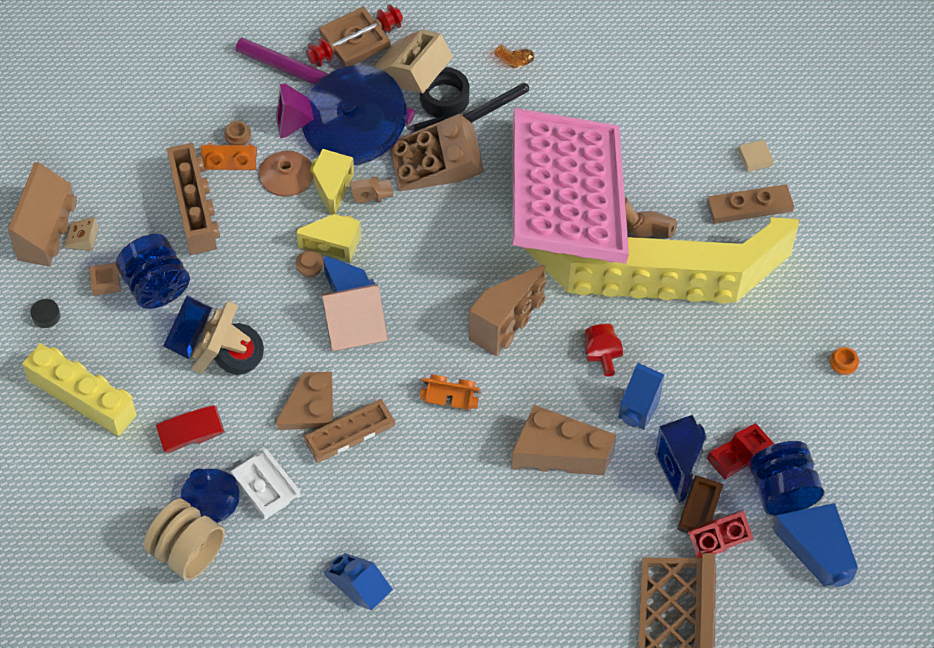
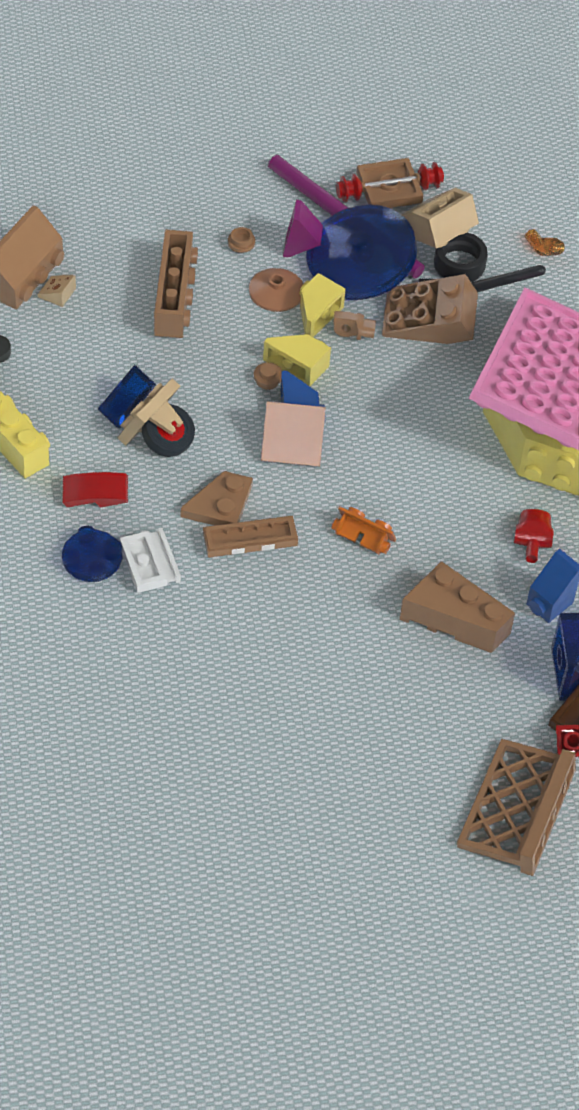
camera: 15 degrees right, 5 degrees down
(104, 279) = (64, 333): medium nougat plate -> none
(152, 271) = (111, 336): clear blue wheel -> none
(184, 539) = (50, 582): tan wheel -> none
(229, 157) = (225, 258): orange hinge -> none
(358, 580) = (207, 672): blue slope -> none
(506, 309) = (447, 467): medium nougat slope -> none

